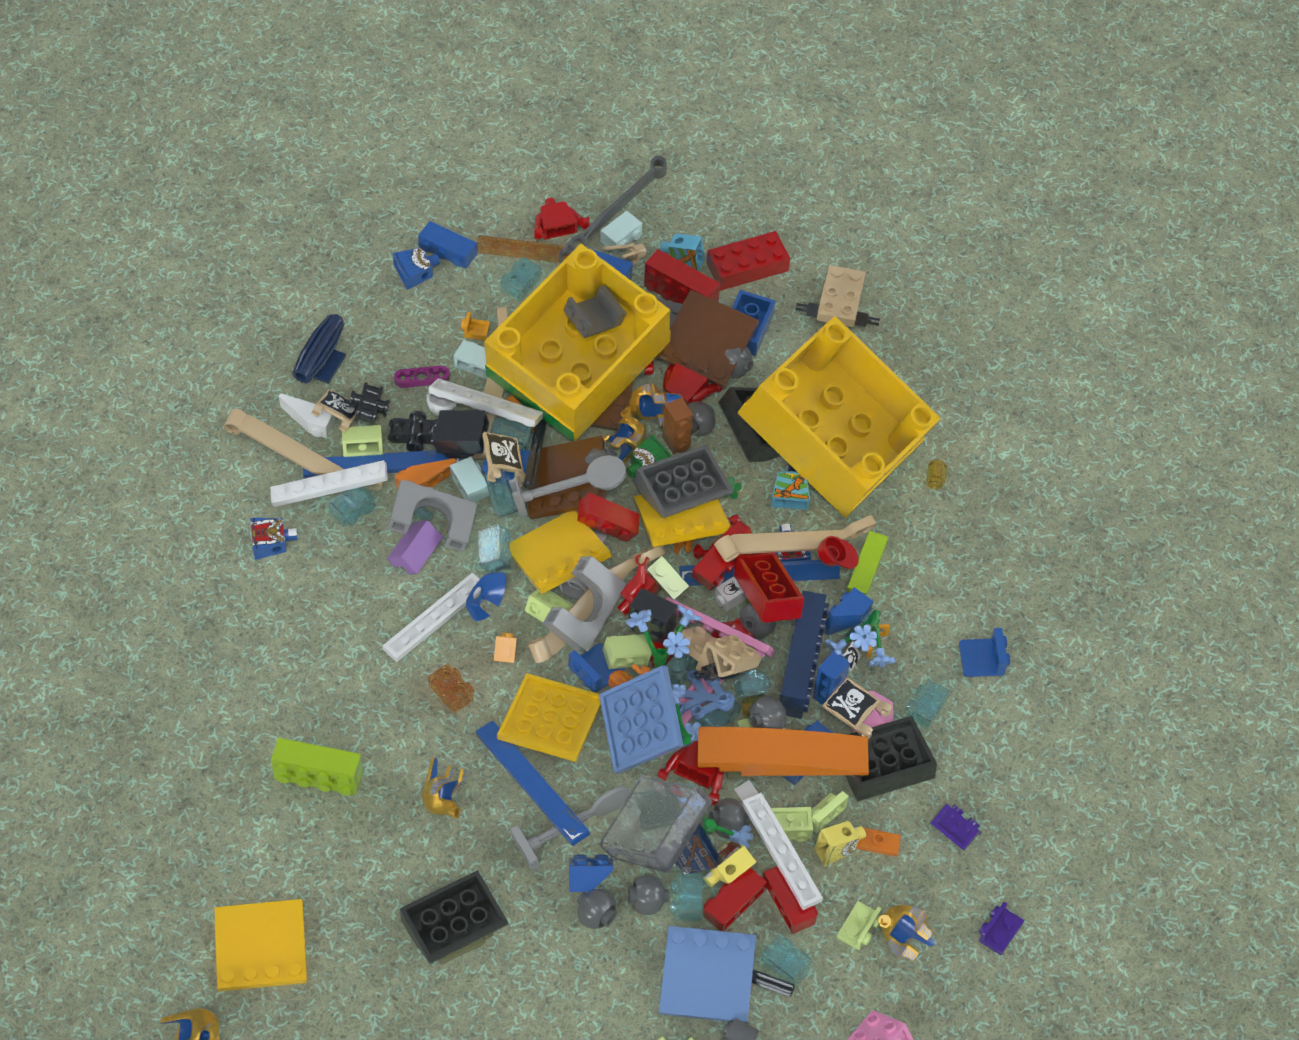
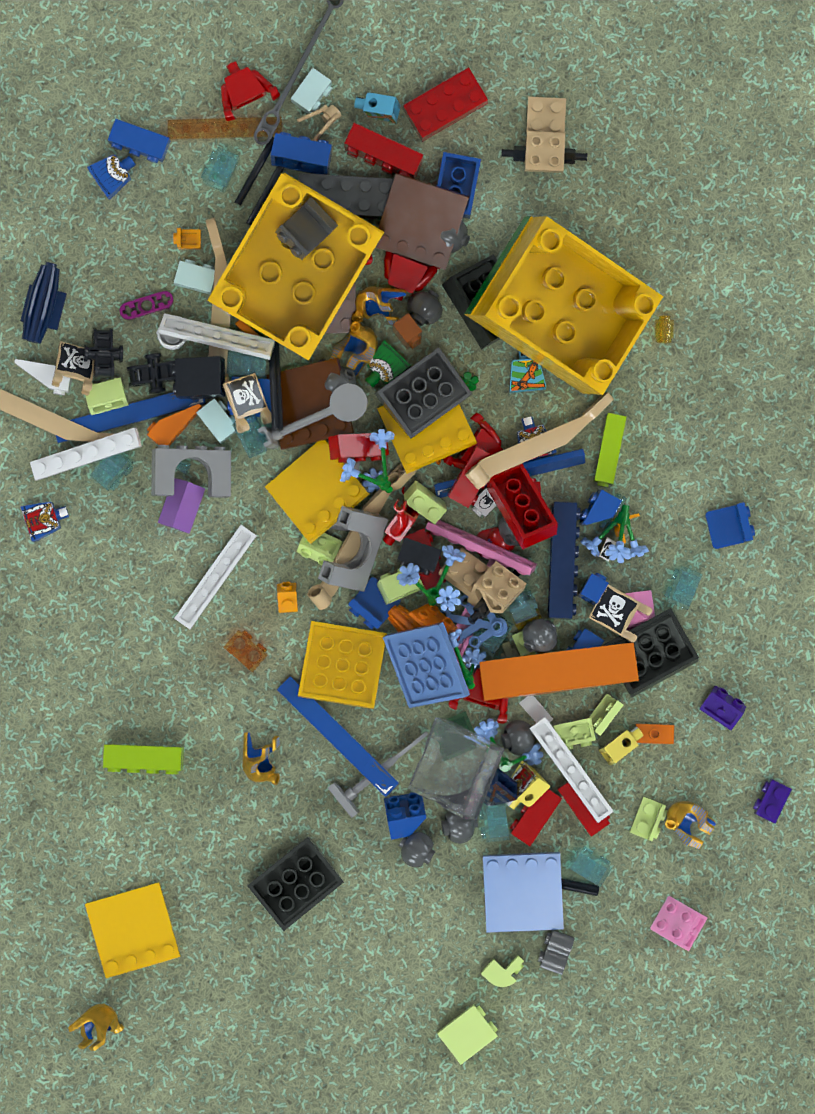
camera: 10 degrees left, 30 degrees up
(492, 589) = (264, 539): blue piece -> none
(494, 548) = (256, 496): clear light blue brick -> none
(634, 510) = (374, 480): none -> light blue plant
(836, 551) = (581, 449): red cap -> none

